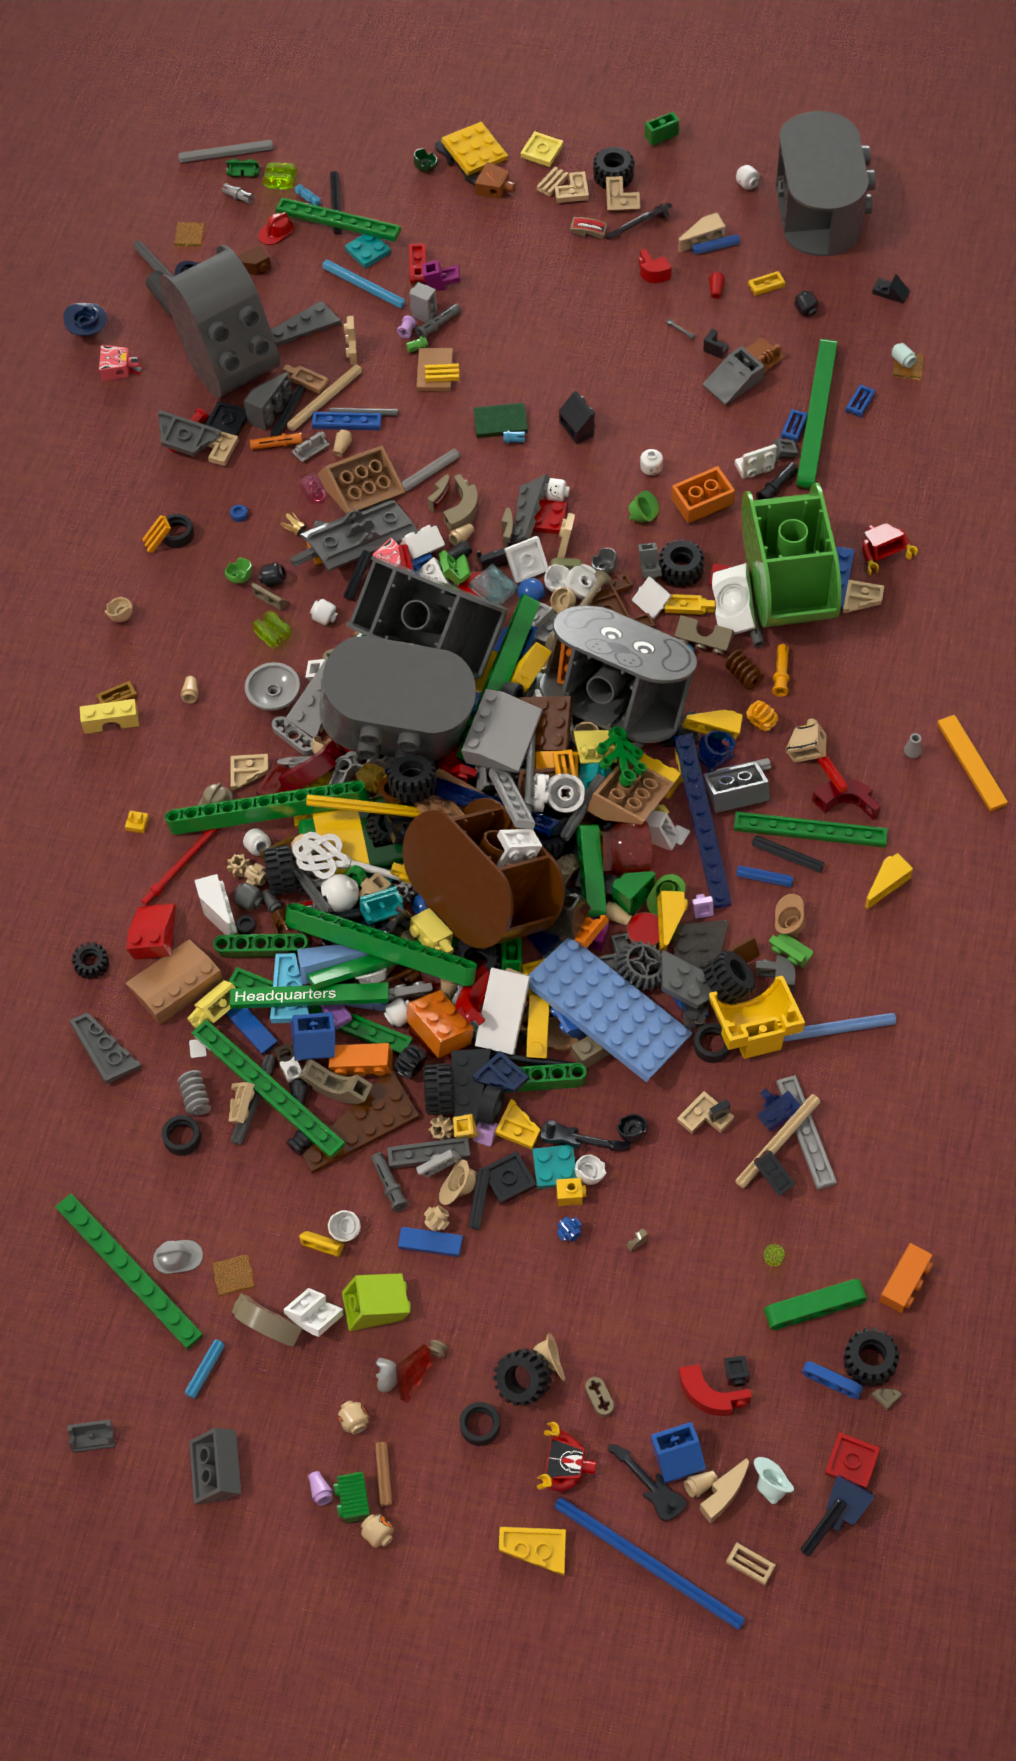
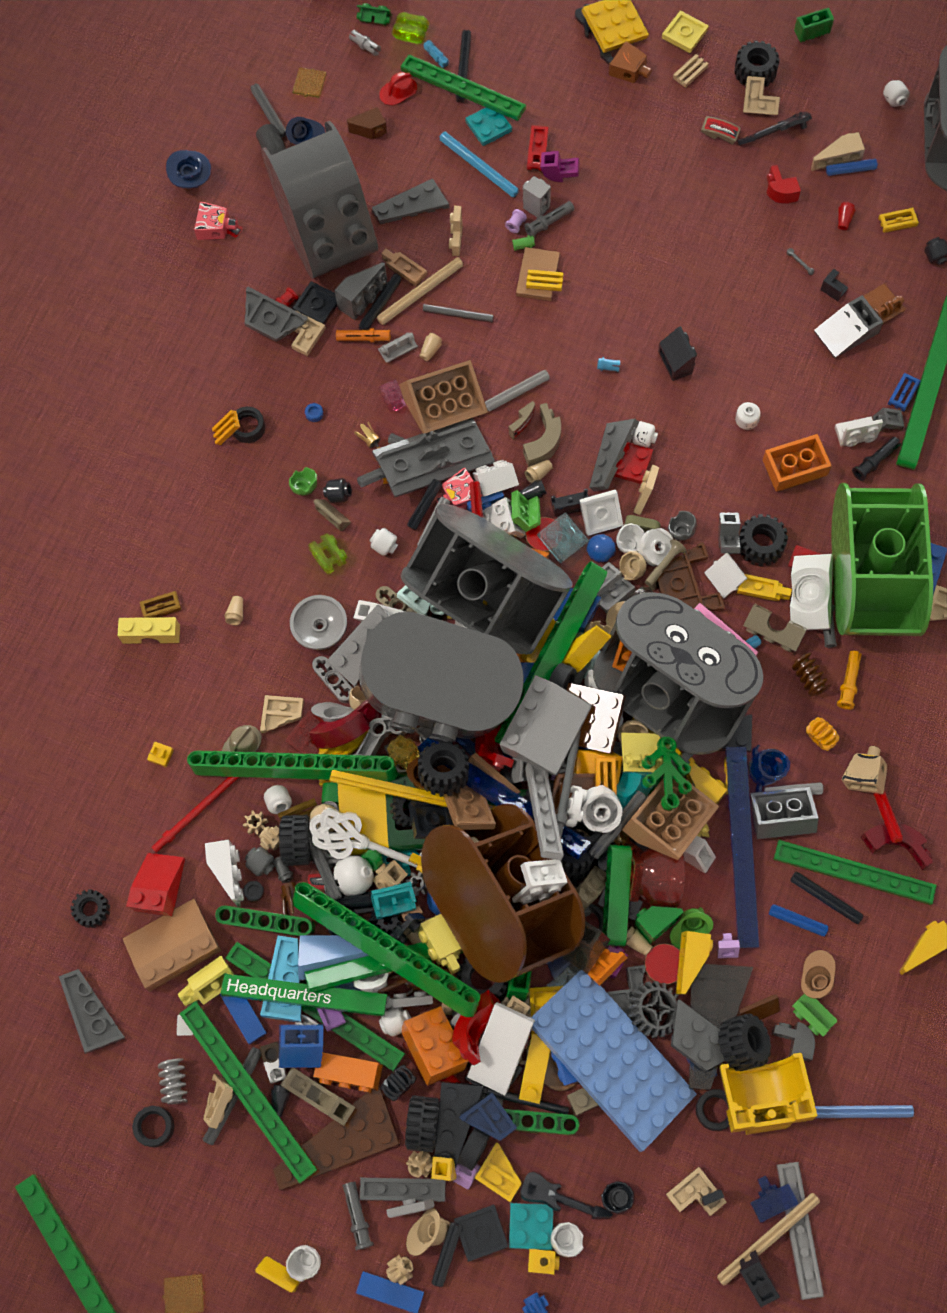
camera: 10 degrees right, 10 degrees up
(119, 609) = (176, 508): tan hair -> none
(177, 1256) = (131, 1263): light grey piece -> none
(298, 1142) = (270, 1157): black wheel -> none
(346, 421) = (439, 321): blue tile -> none
(424, 161) = (561, 30): dark green hair -> none
(497, 419) = (597, 341): dark green tile -> none
(507, 527) = (587, 469): dark tan slope -> none
(575, 191) = (714, 85): tan plate -> none
(644, 507) = (732, 468): bright green piece -> none
(683, 834) = (719, 853): white sticker -> none
(716, 720) = (774, 736): yellow slope -> none

